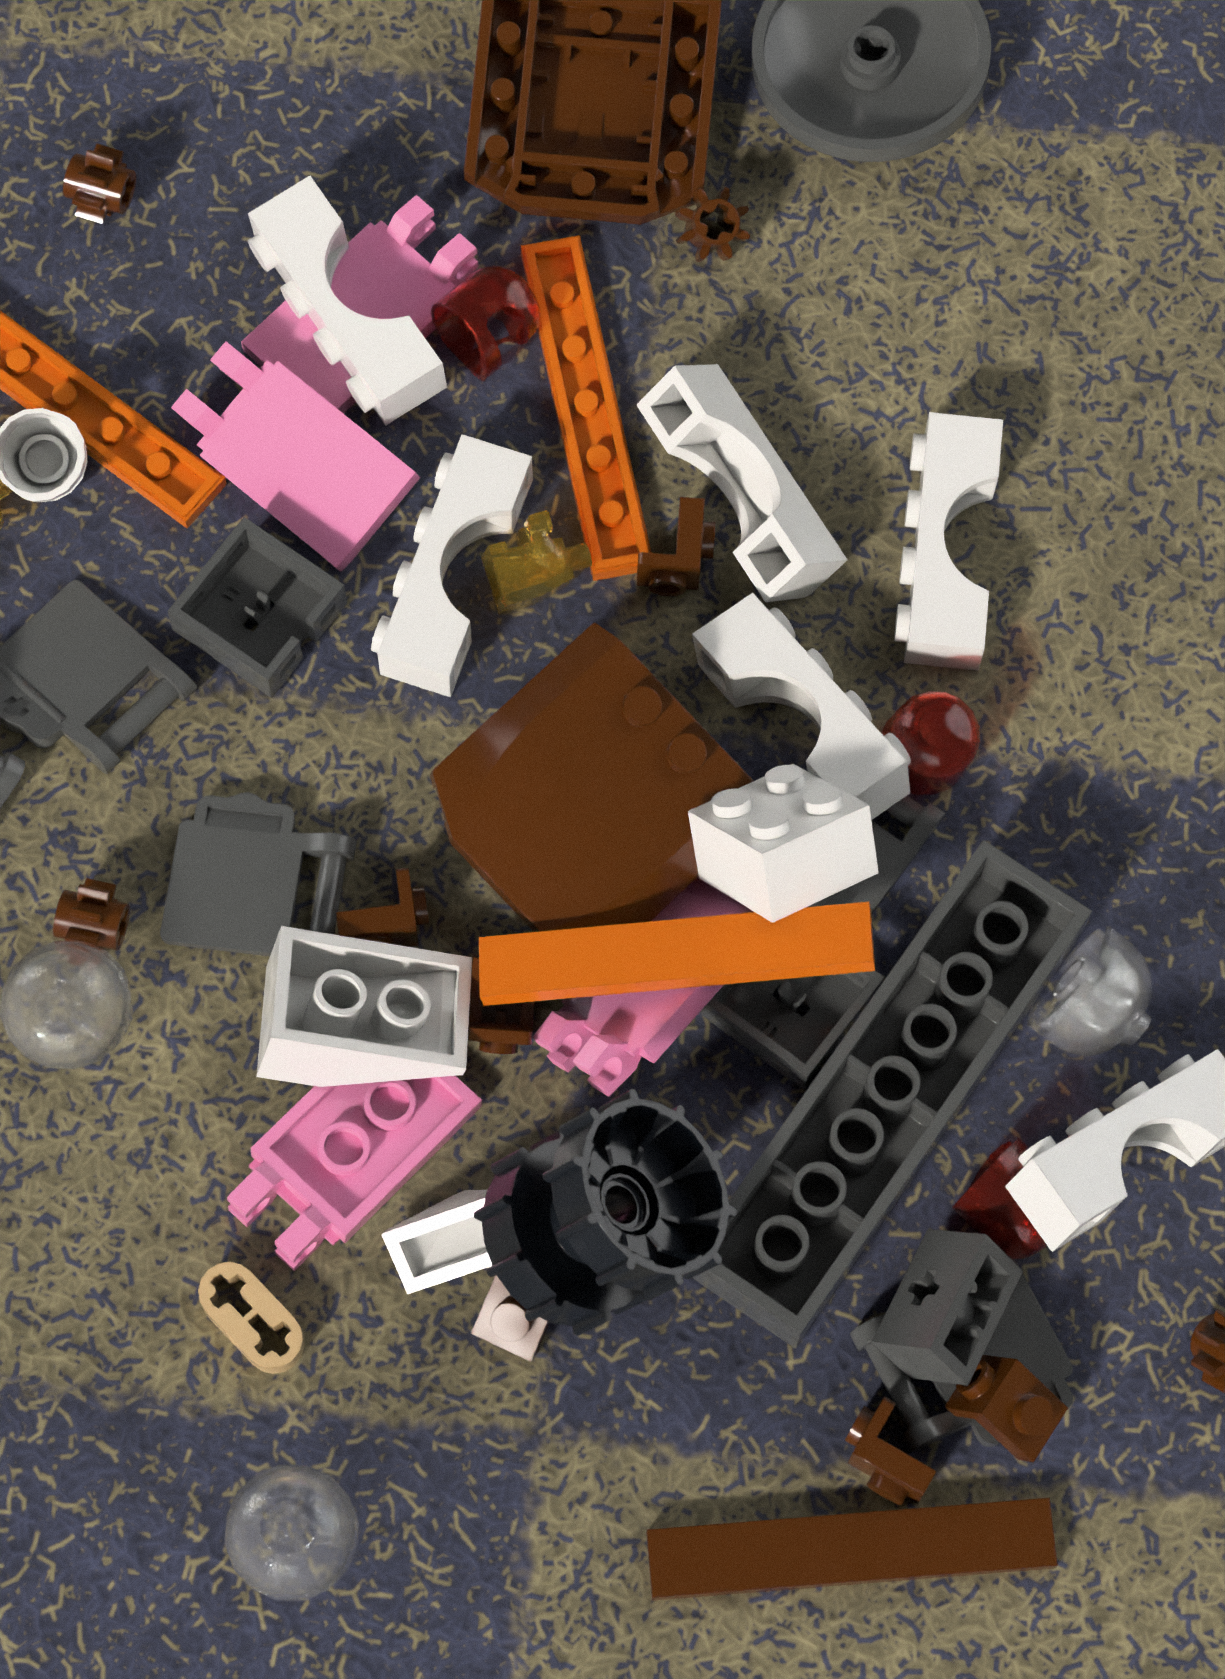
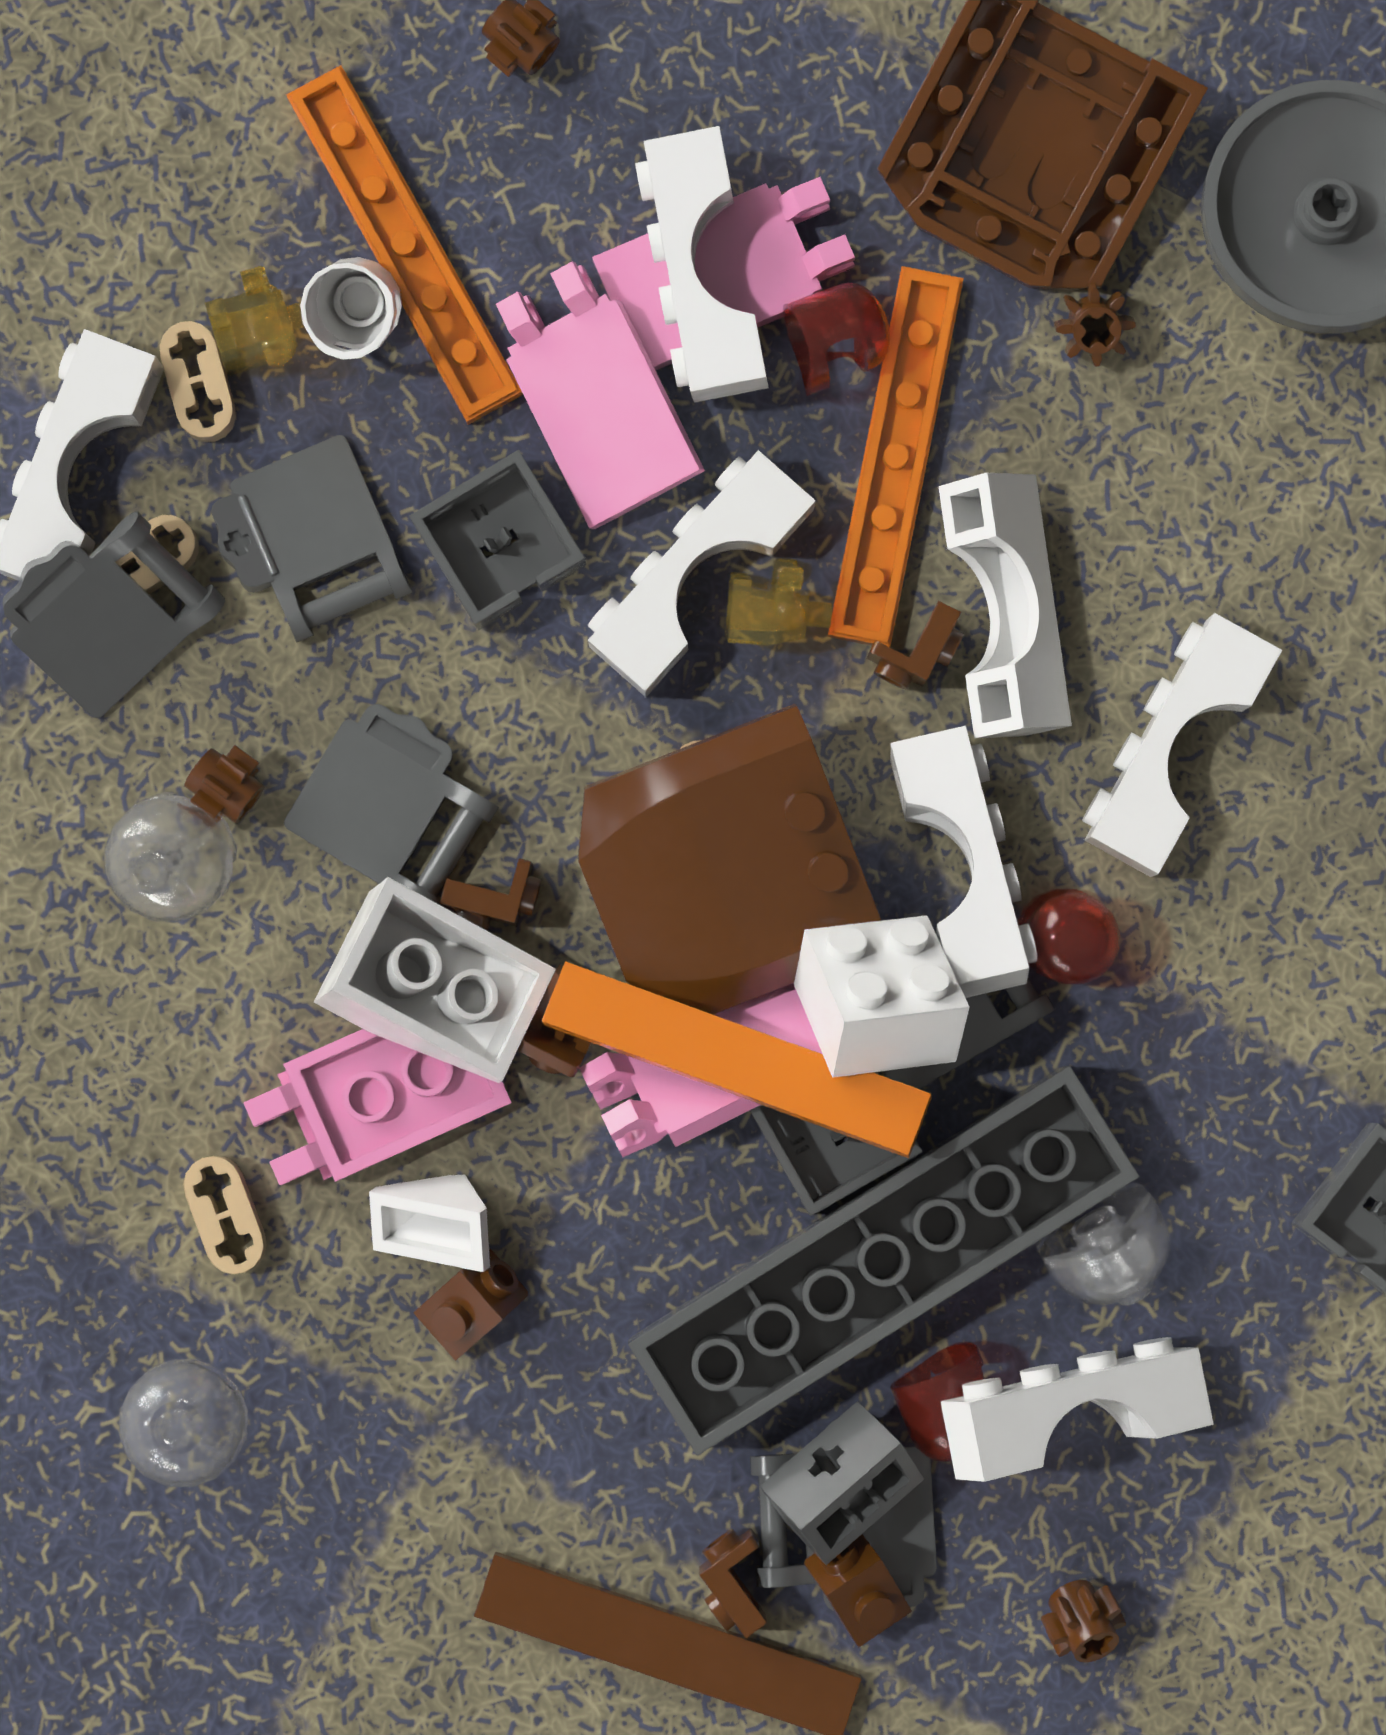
camera: 25 degrees right, 15 degrees up
(605, 1213) = (618, 1291): black piece -> none

